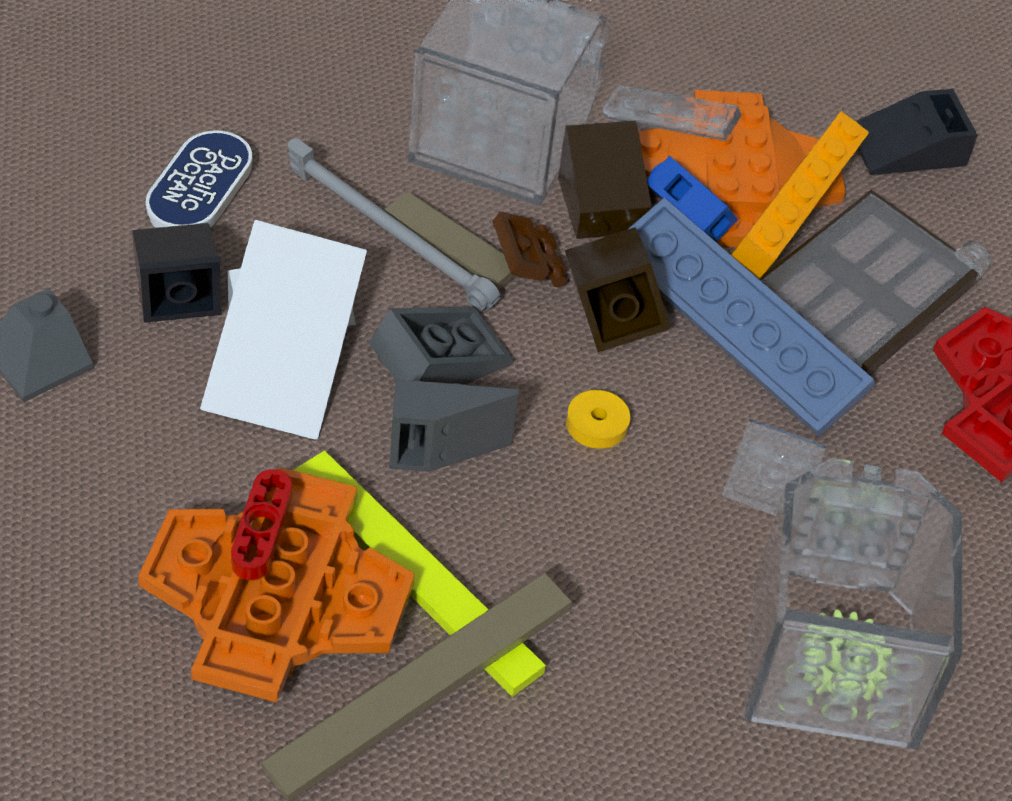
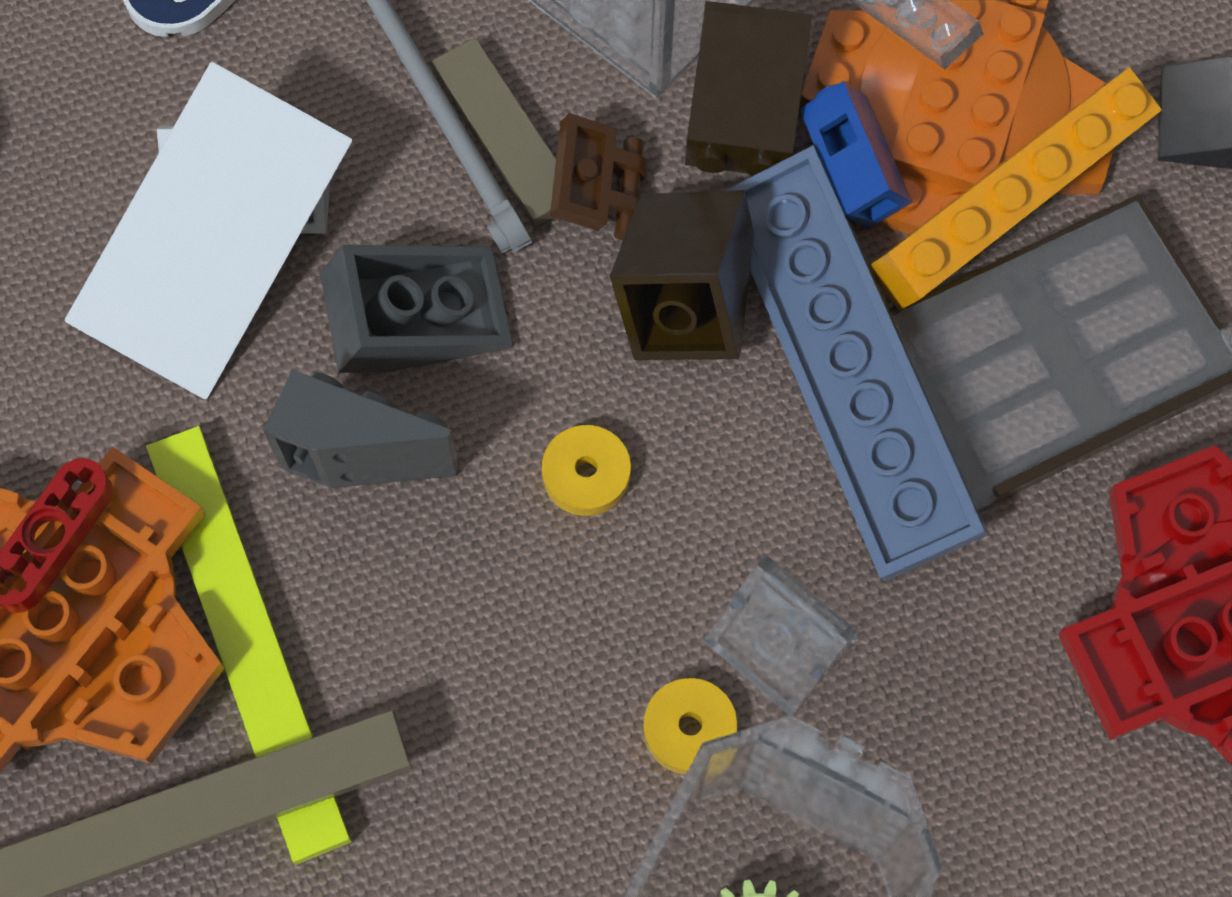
camera: 25 degrees right, 20 degrees up
(177, 272) = (110, 95): black slope -> none
(738, 531) = (682, 700): none -> yellow piece

